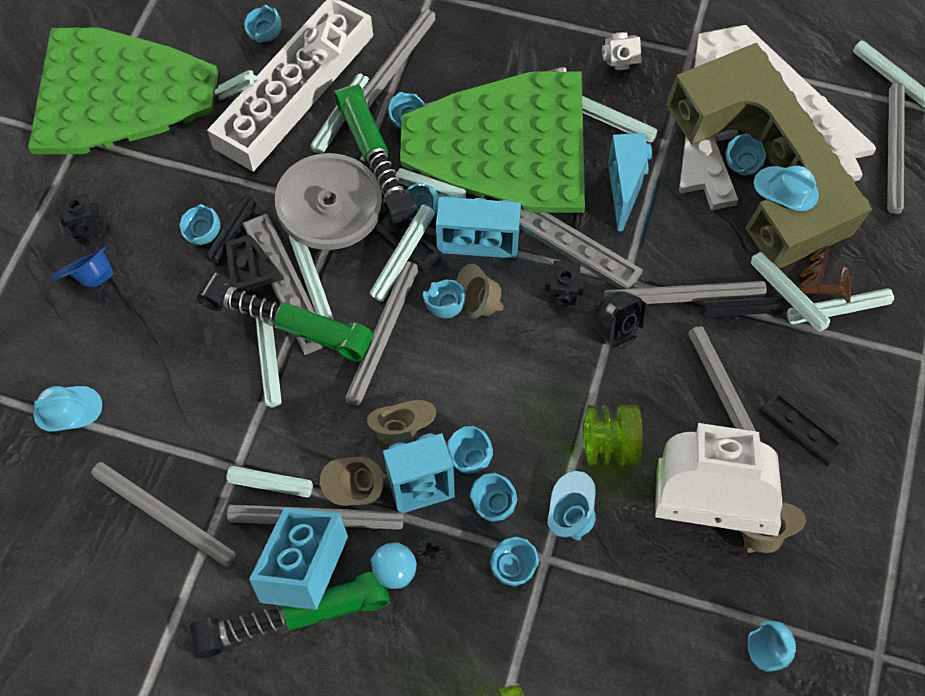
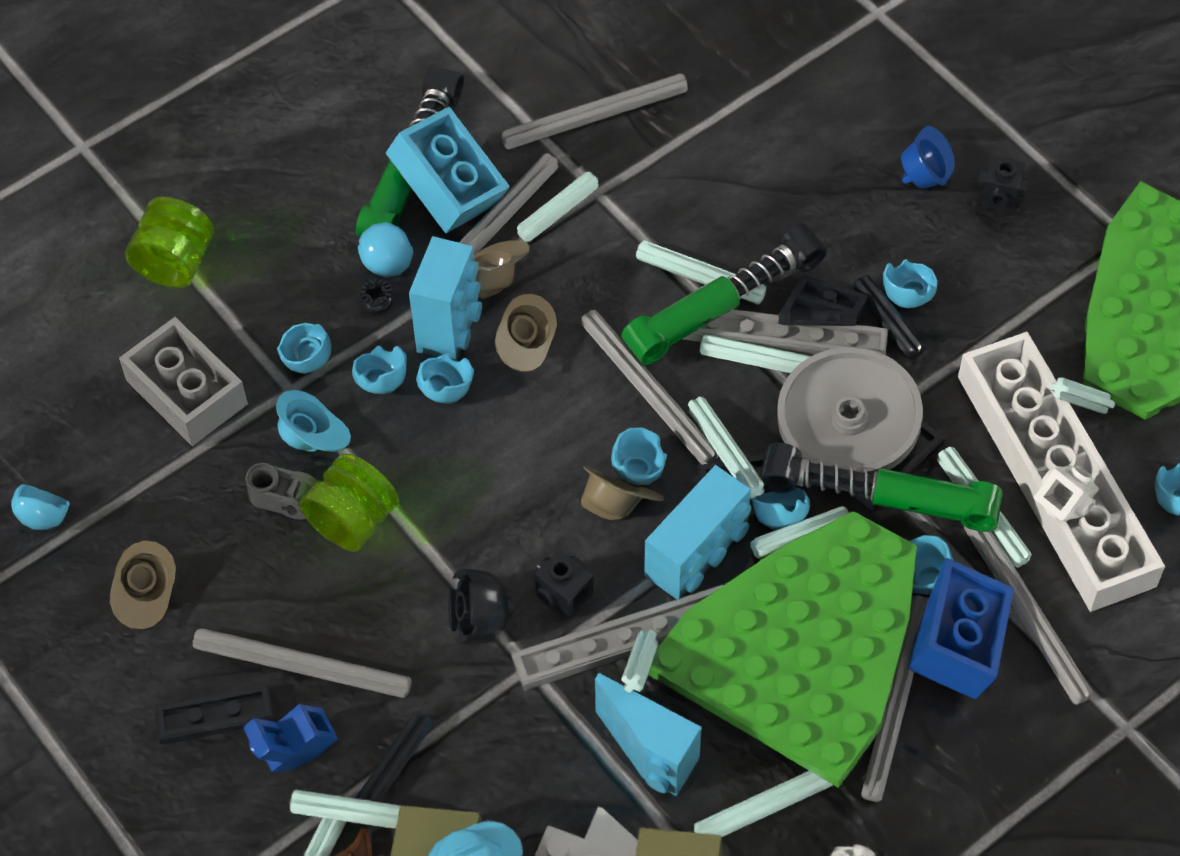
camera: 125 degrees right, 5 degrees down
(67, 408) = (772, 88): medium azure piece -> none
(439, 70) = (962, 630): none -> blue slope
(592, 197) = (640, 661): none -> light aqua axle
(605, 622) = (183, 381): none -> light grey brick
(629, 491) = (284, 490): none -> dark grey piece
(698, 292) = (458, 712): light grey axle -> none
(720, 476) = (211, 557): white container -> none
(784, 365) = (292, 740): none -> blue brick

